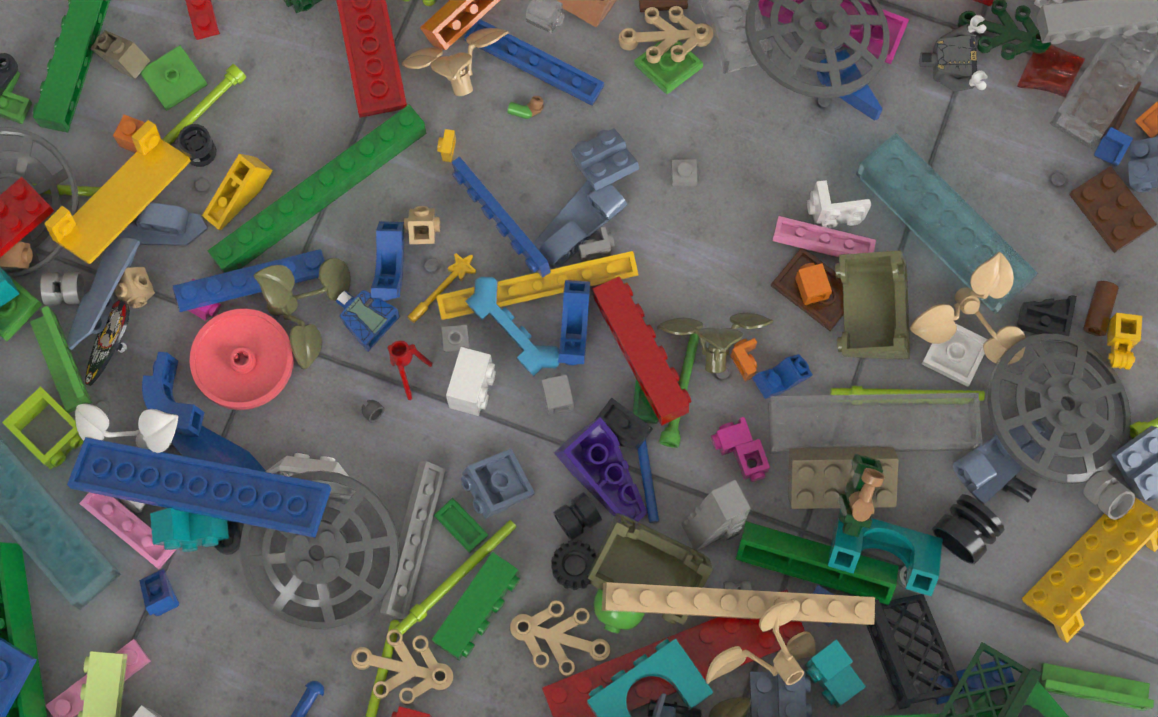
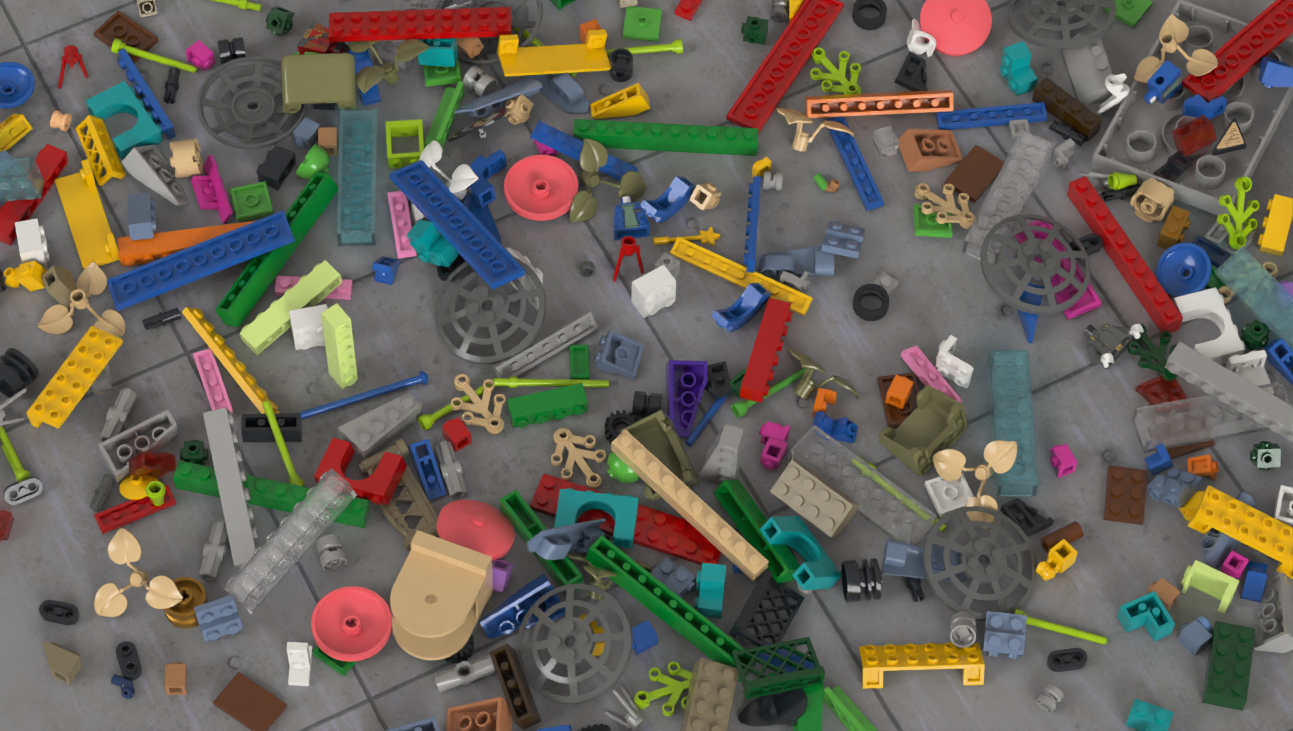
camera: 40 degrees right, 15 degrees down
(472, 149) = (772, 180): none -> light grey wheel
(485, 302) = (699, 260): dark azure plate -> none
(557, 393) = (697, 338): light grey brick -> none
(696, 187) = (871, 314): none -> black tyre
(785, 662) = (702, 516): tan plant -> none
(857, 503) = (806, 507): hips -> none
(1026, 223) = (1062, 460): none -> dark pink brick

